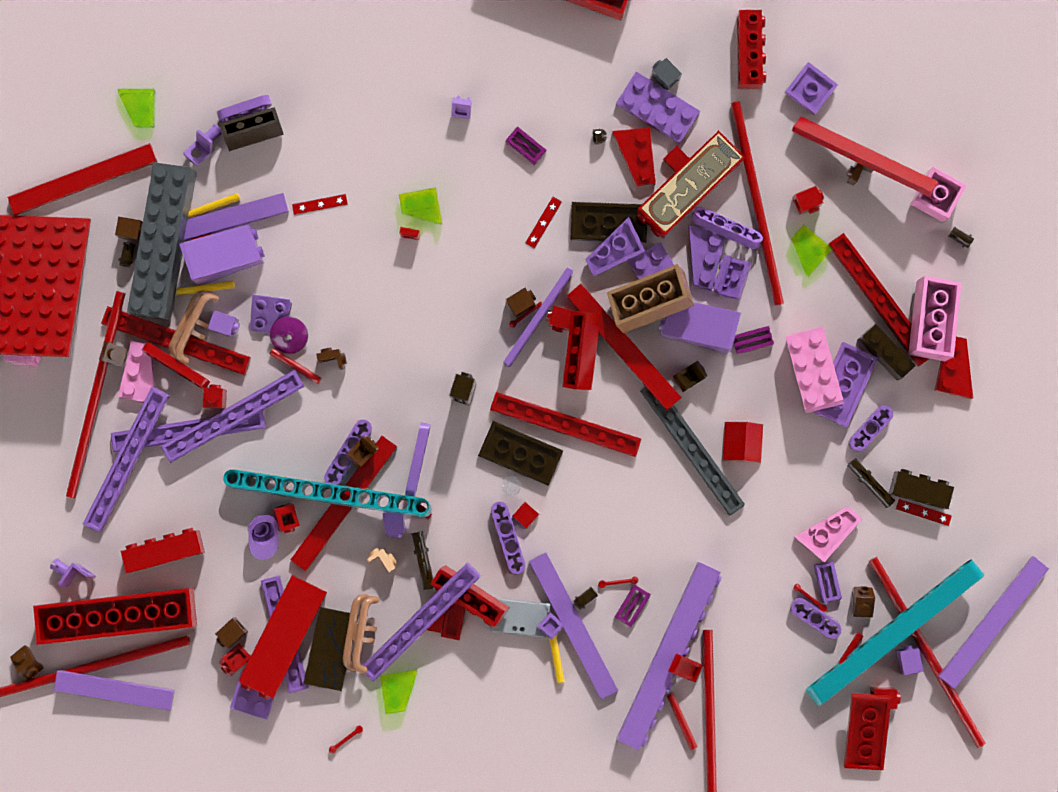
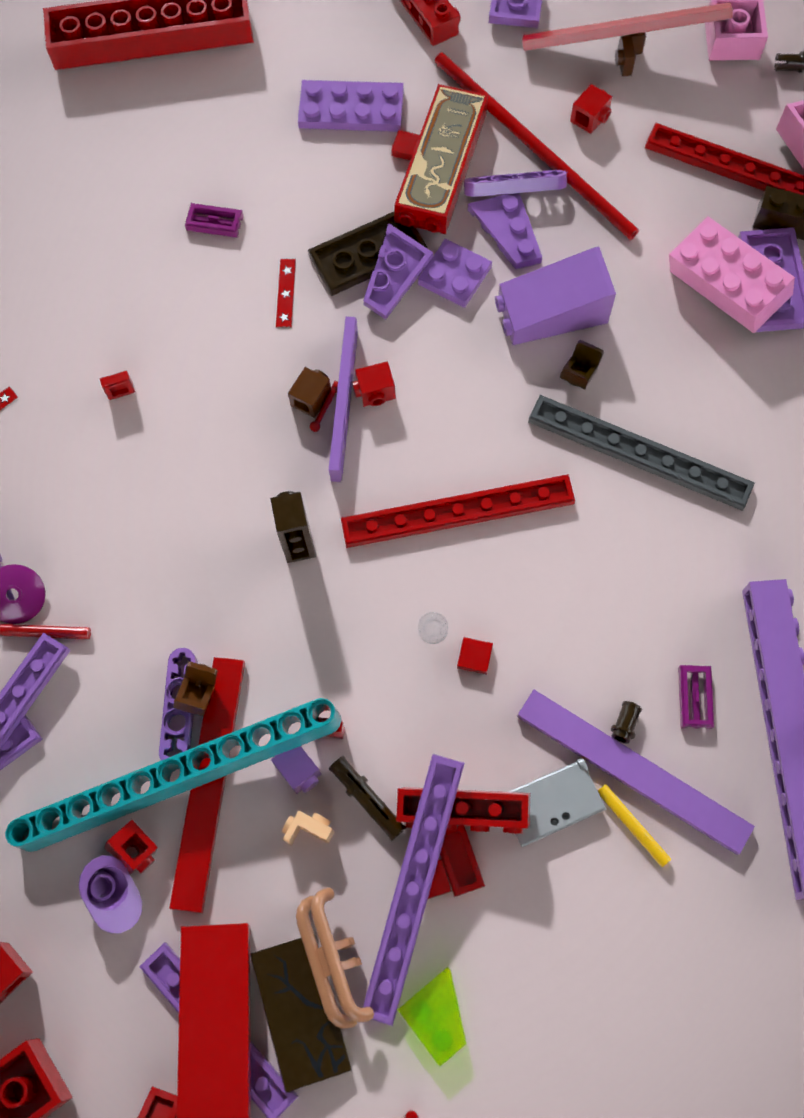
camera: 25 degrees left, 15 degrees down
(230, 633) = (130, 1078): reddish brown brick -> none
(328, 355) = (87, 588): reddish brown bracket -> none
(417, 460) = (281, 657): medium lavender beam -> none
(421, 205) = (116, 346): clear neon green wing -> none
(461, 107) = (108, 215): medium lavender tile -> none
(505, 538) = (466, 702): medium lavender beam -> none
(520, 453) = (420, 579): dark brown tile -> none
(550, 626) = (603, 787): medium lavender tile -> none
(581, 350) = (423, 402): red brick -> none
(599, 136) = (298, 165): dark brown hinge -> none
(626, 349) = (477, 376): red tile -> none
(634, 580) = (637, 690): red hinge -> none
(637, 151) = (358, 162): red wing -> none
(650, 298) = (475, 293): medium nougat brick -> none
(665, 73) = (339, 63): dark grey brick -> none
(731, 277) = (558, 232): medium lavender bracket -> none
(742, 441) = (697, 410): red slope -> none
(768, 335) = (643, 275): magenta tile -> none
(809, 249) = (628, 157): clear neon green wing -> none

